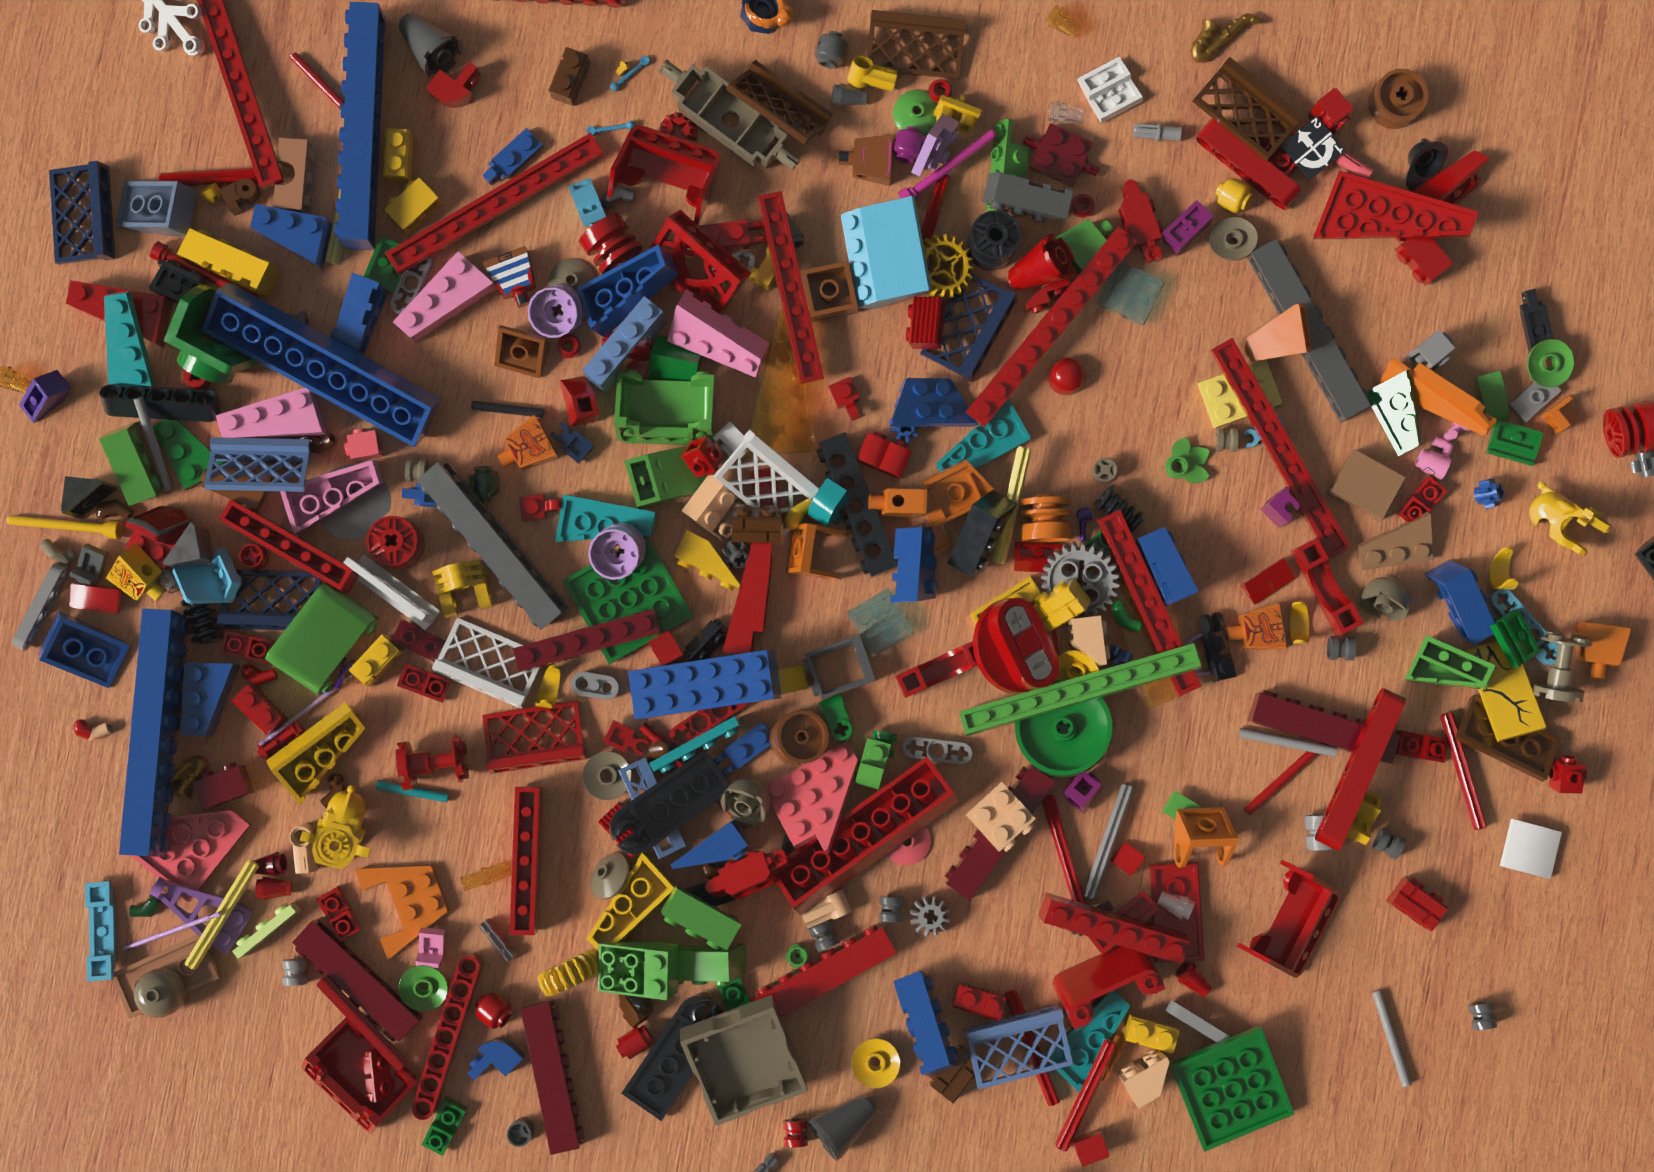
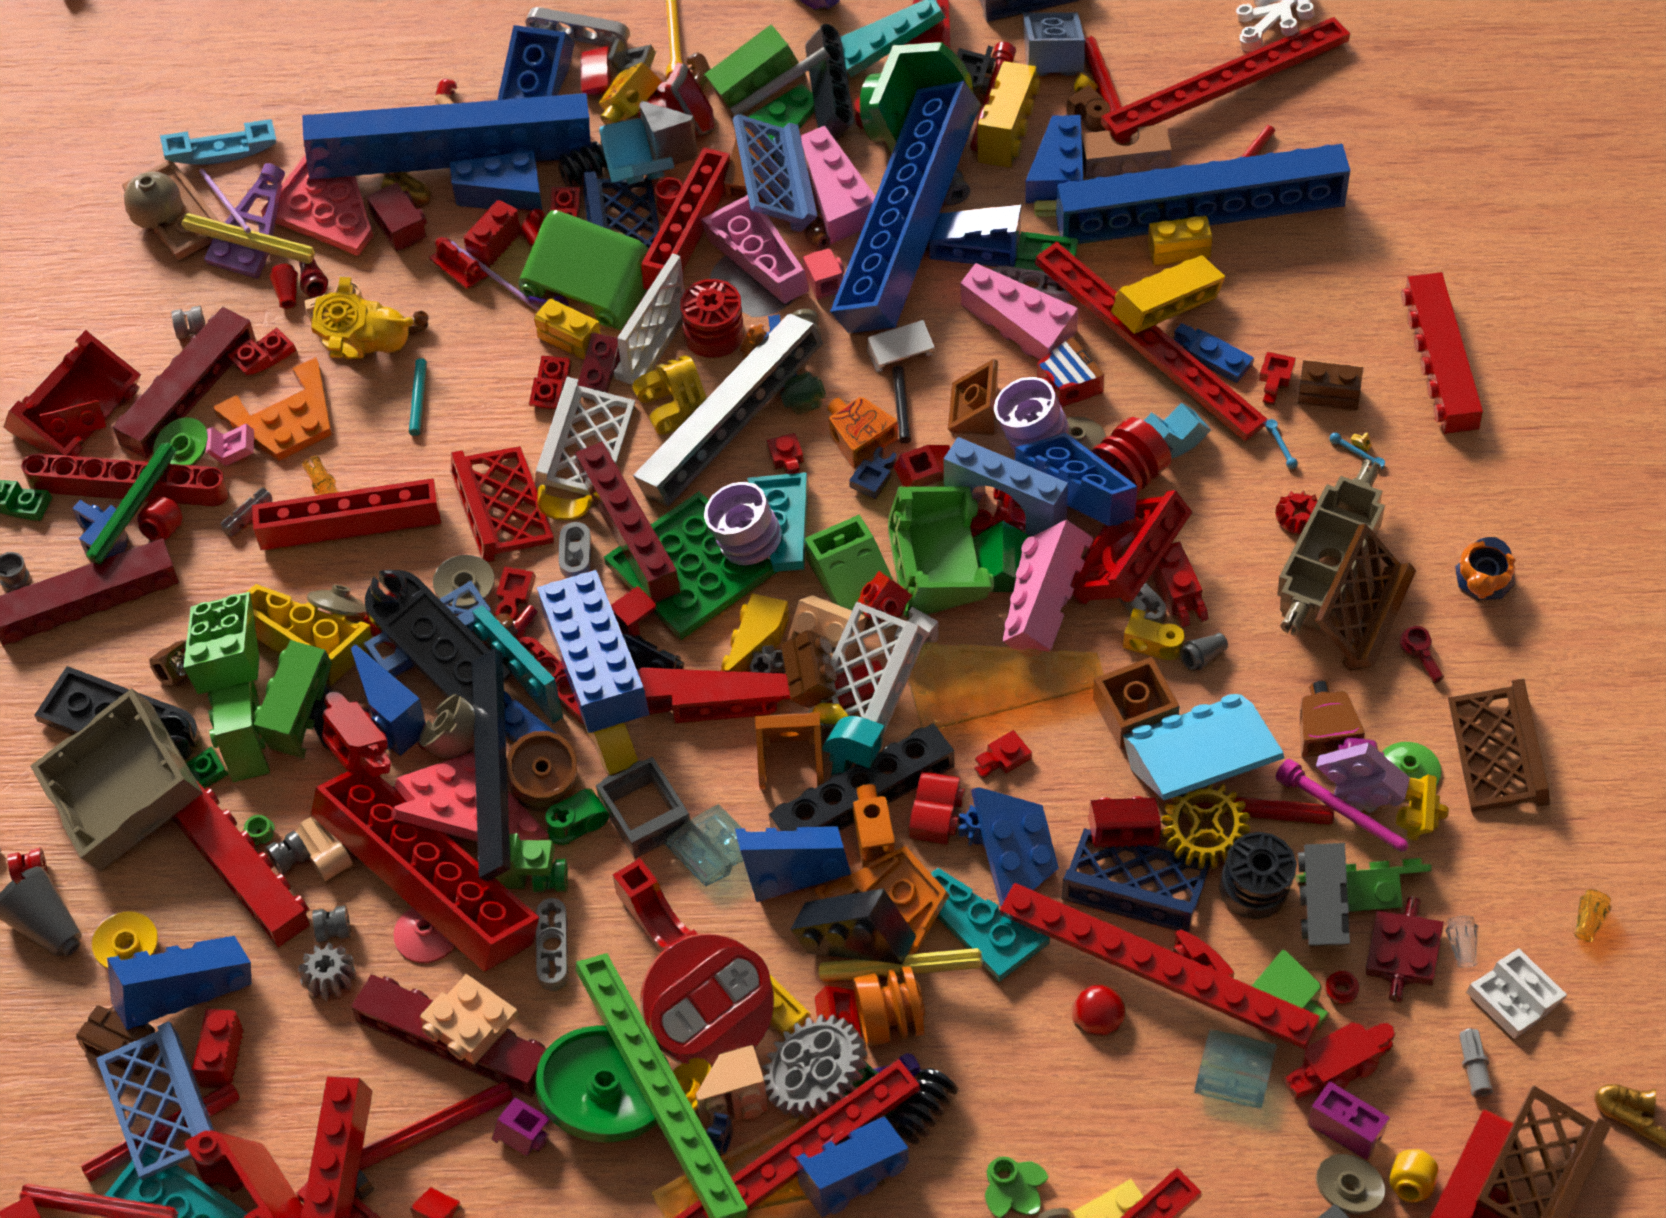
camera: 80 degrees right, 30 degrees down
(55, 554) = (638, 28): dark tan arm -> none
(83, 495) = (705, 31): pearl dark grey slope -> none
(149, 908) = (246, 177): dark green arm -> none
(266, 929) = (235, 288): yellowish green plate -> none
(311, 754) = (442, 284): yellow wedge -> none
(362, 1023) = (132, 389): red axle -> none
(412, 205) = (1121, 262): yellow brick -> none
(422, 763) = (447, 379): red piece -> none
(428, 513) = (753, 338): none -> orange axle
(430, 44) = (1321, 244): dark grey cone -> none
(454, 92) = (1278, 280): red brick -> none
(455, 398) = (899, 344): none -> white hinge
(458, 178) = (1167, 294): none -> yellow brick
(484, 1031) = (131, 503): none -> green axle
(545, 114) = (1276, 371): none -> red plate
(564, 340) = (998, 443): red plate -> none
(569, 973) = (208, 572): yellow gear -> none
(620, 193) = (1199, 462): dark grey arm -> none
(634, 1042) = (132, 670): red brick -> none
(669, 161) = (1258, 498): red windscreen -> none
(790, 287) = (1150, 641): red plate -> none
(795, 774) = (491, 766): none -> black tile
(814, 77) = (1417, 642): none -> dark red plate
(831, 50) = (1458, 652): dark grey head -> none
(847, 95) = (1404, 681): dark grey cone -> none
(866, 73) = (1438, 694): yellow piece -> none
(939, 84) = (1449, 781): red plate -> none
(1043, 264) = (1244, 938): red cone -> none
(1061, 604) = (774, 1039): yellow brick -> none
(1108, 467) = (974, 1070): dark tan wheel -> none
(1108, 841) = (456, 1178): light grey axle -> none
(1122, 617) = (771, 1128): green arm -> none

